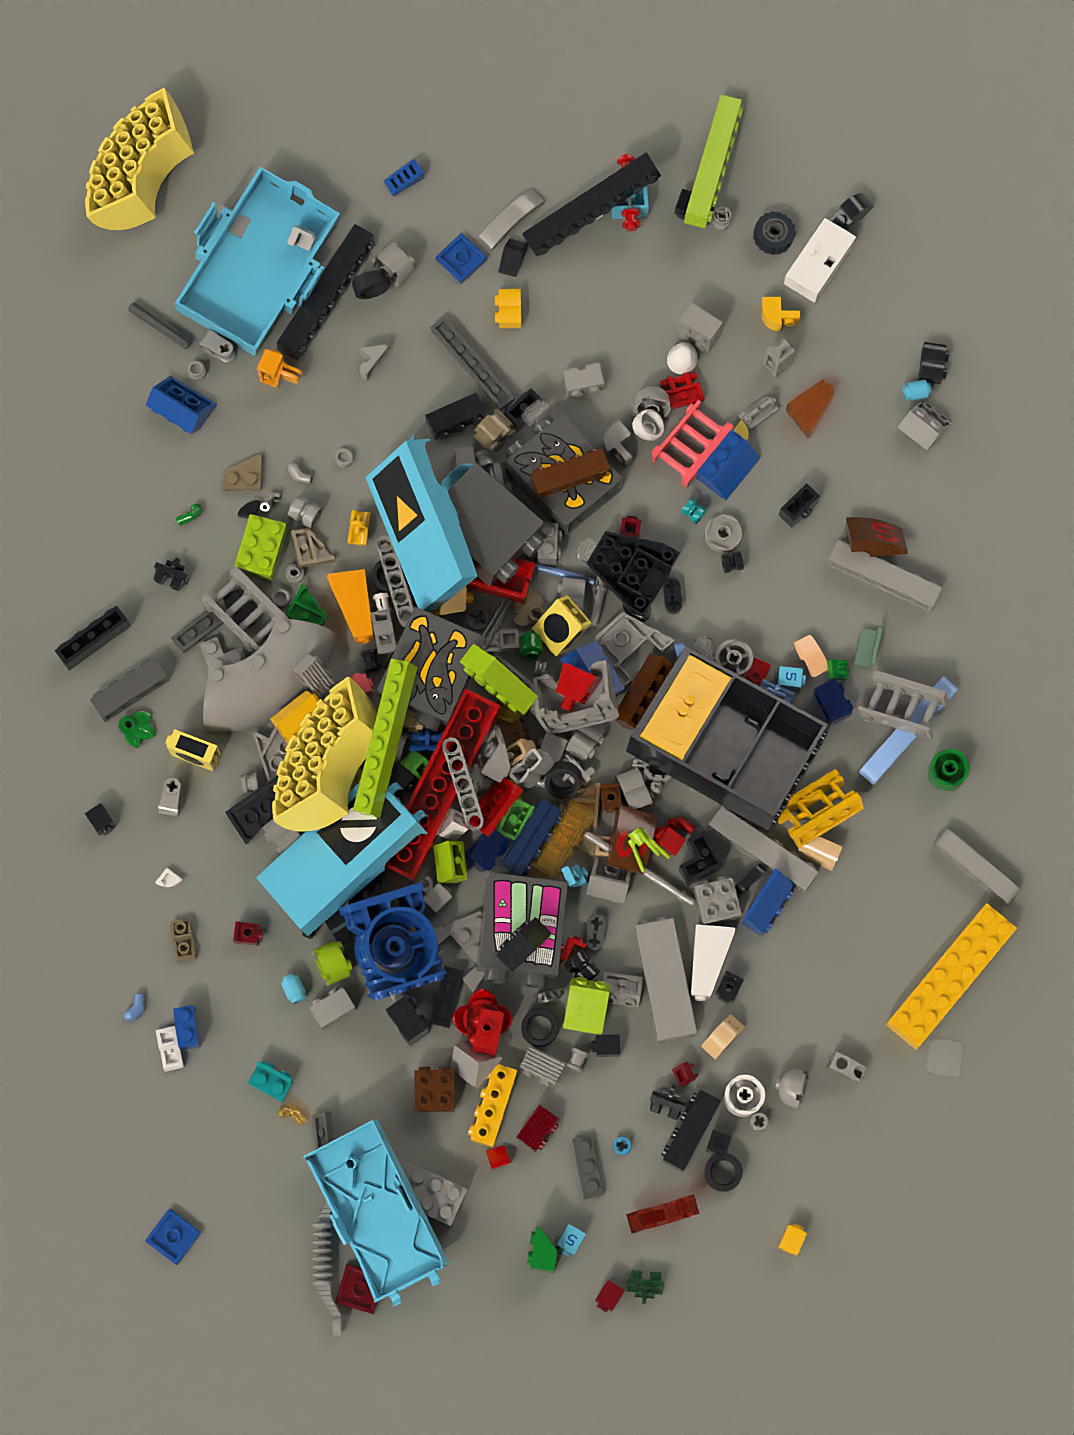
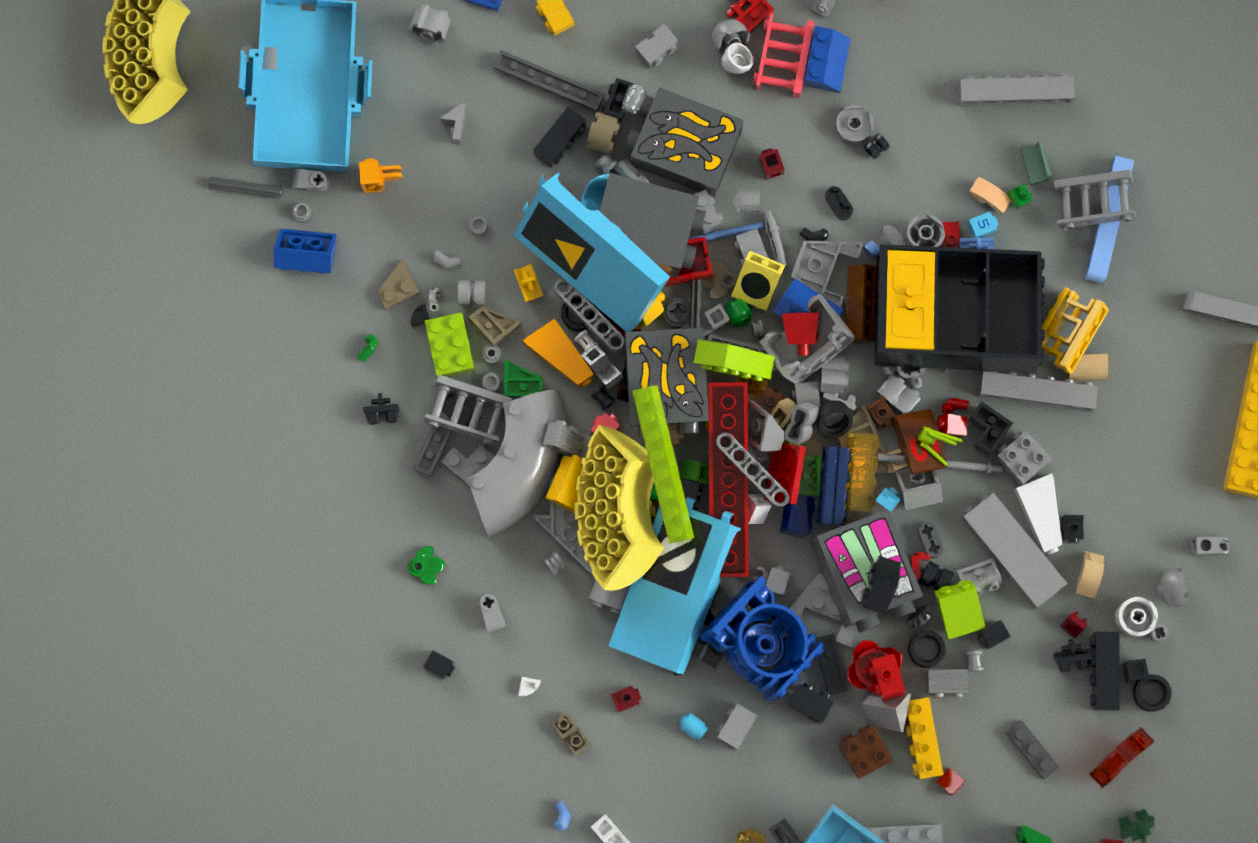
camera: 25 degrees left, 5 degrees up
(92, 637) = (343, 504): black brick -> none
(129, 689) = (401, 534): dark grey brick -> none
(186, 1027) = (617, 810): blue brick -> none
(193, 750) = (489, 560): brick -> none
(253, 811) = (573, 586): black wing -> none
(271, 1081) = (715, 818): teal bracket -> none
(301, 237) = (332, 41): light grey panel -> none
(325, 293) = (383, 71): black brick -> none
(332, 962) = (715, 686): lime brick -> none
(370, 284) = (418, 54): black tyre -> none
(424, 741) = (692, 446): blue hips -> none
(450, 862) = (769, 541): lime brick -> none
(464, 455) = (588, 170): light grey panel -> none
(537, 1129) = (972, 738): dark red brick -> none
(570, 473) = (696, 139): reddish brown brick -> none
(570, 1240) = (1052, 821): medium azure brick -> none
(614, 441) = (714, 90): light grey brick -> none
(624, 1151) = (1047, 711): dark azure bush -> none
(632, 568) = (793, 196): black wedge -> none
(693, 510) = (813, 116): teal wheel -> none
(742, 430) = (821, 21): light yellow tile -> none
(750, 879) = (1041, 422): black beam -> none
(768, 903) = (1068, 436): blue slope -> none
(792, 1239) = (1242, 720): yellow brick -> none
(799, 505) = (910, 65): black brick -> none
(833, 702) = (1031, 227): clear blue brick -> none
(875, 536) = (991, 60): reddish brown slope -> none
(938, 773) = (1169, 229): green brick -> none

